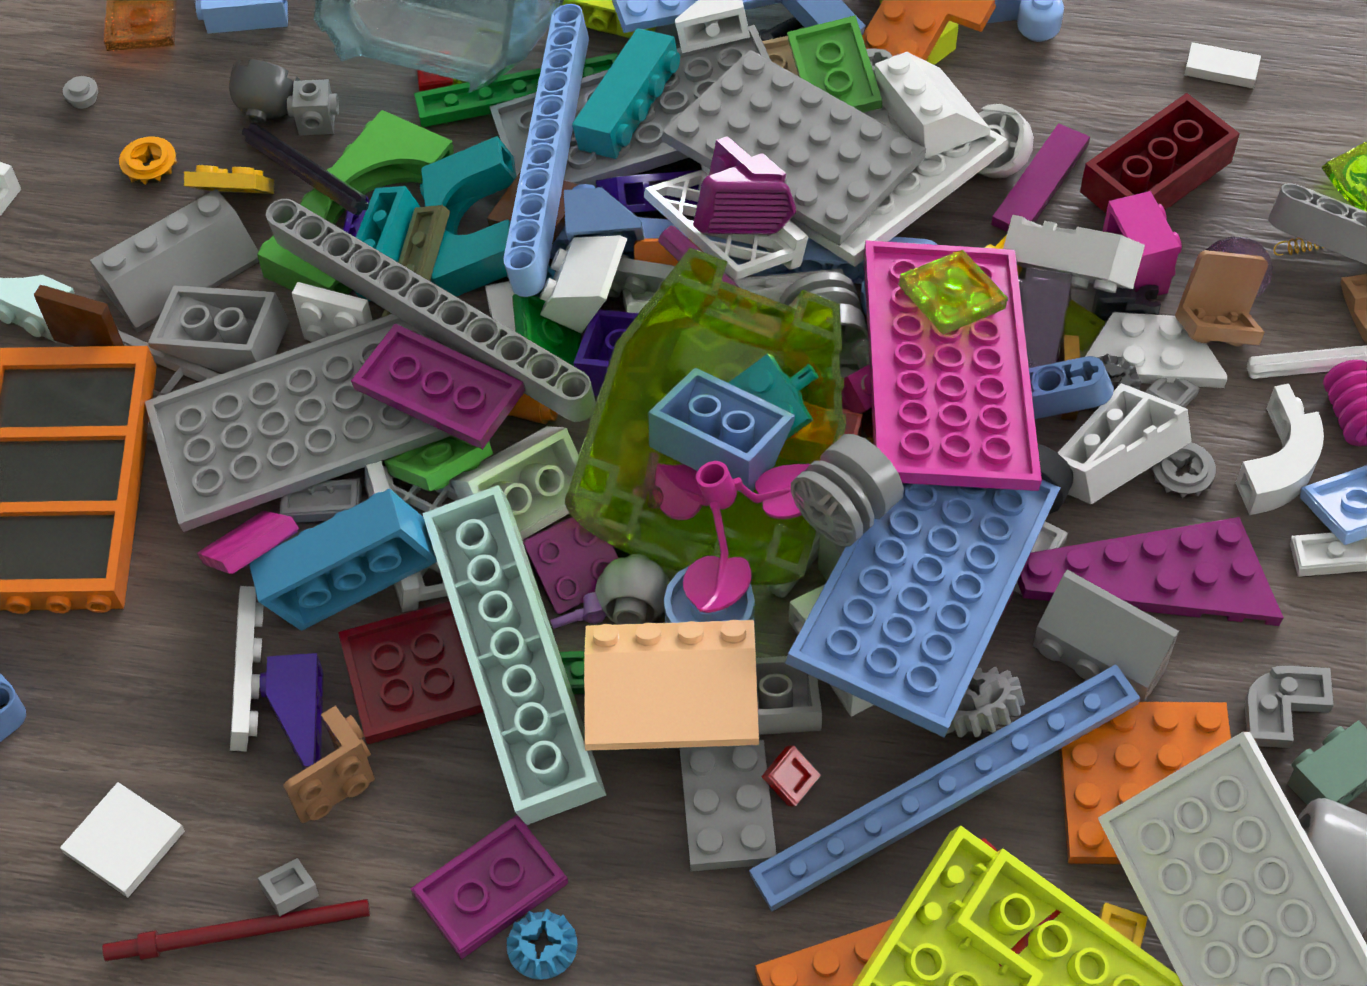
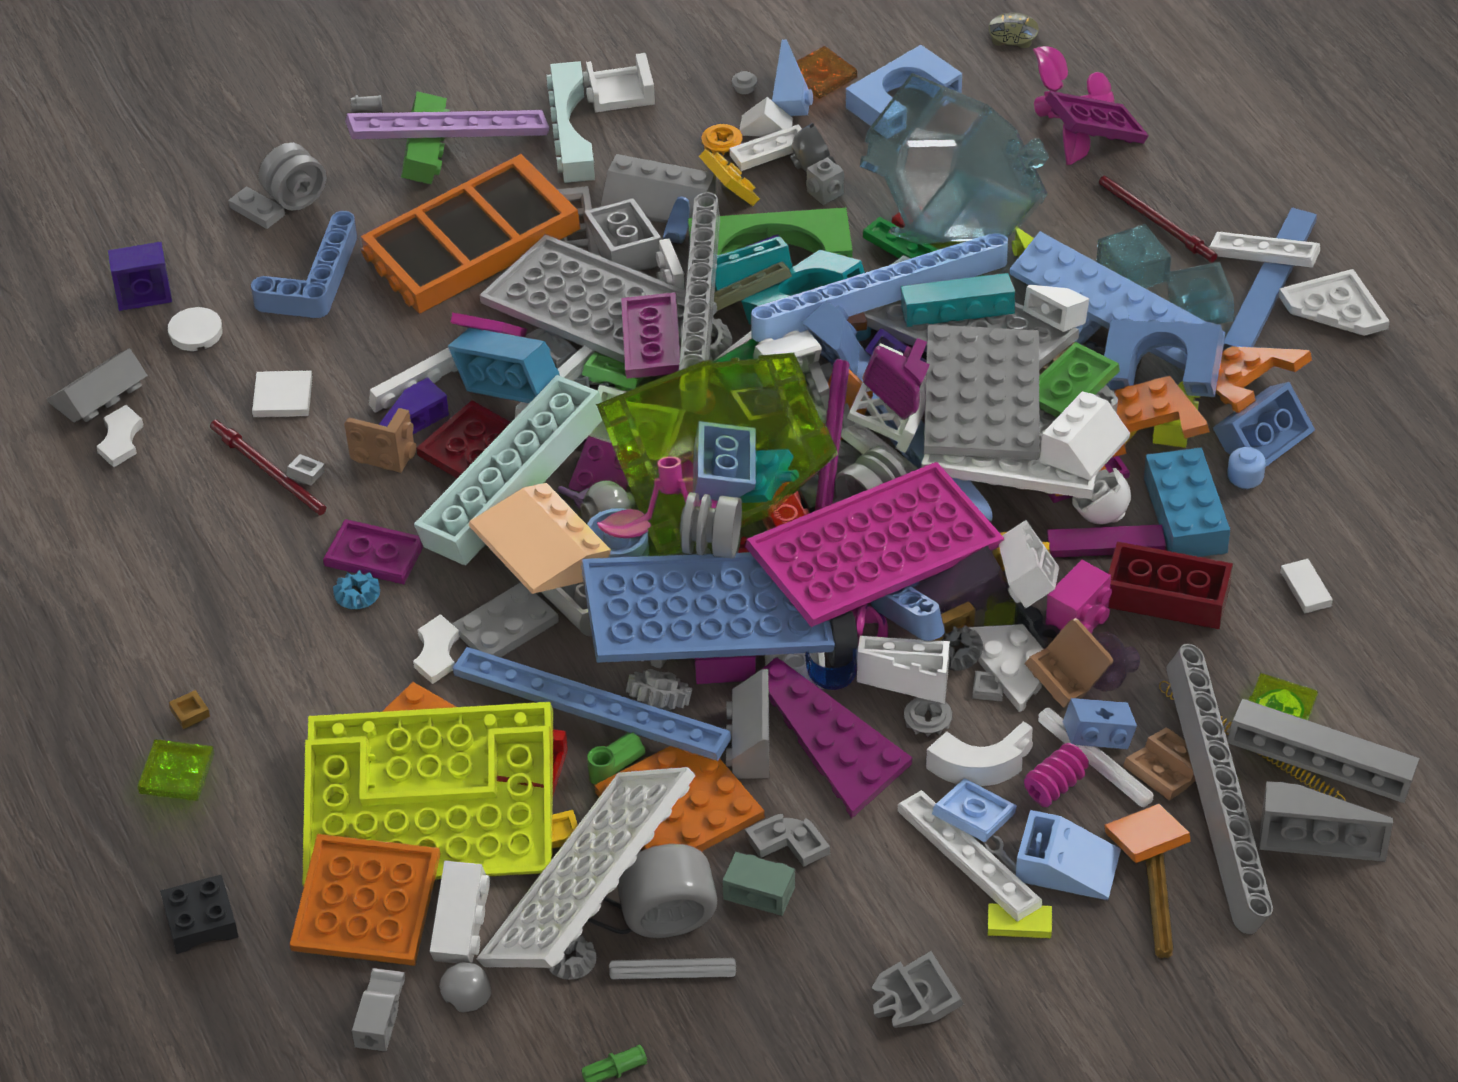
camera: 55 degrees right, 10 degrees down
(77, 318) = (568, 173): reddish brown tile -> none
(143, 49) = (790, 87): none -> light blue slope
(161, 107) = (764, 119): none -> white slope
(206, 126) = (764, 148): none -> white plate
(236, 271) = (678, 221): none -> medium blue helmet
(305, 169) = (767, 200): black axle -> none
(729, 918) = (437, 639): none -> white tile
(791, 775) = (544, 637): tile -> none
(953, 291) = (924, 514): clear neon green plate -> none
(1044, 809) = (609, 760): none -> bright green piece
(1051, 85) = (1186, 502): none -> dark azure brick
(1077, 511) = (832, 677): none -> clear blue helmet
(1318, 326) = (1099, 723): none -> medium blue brick

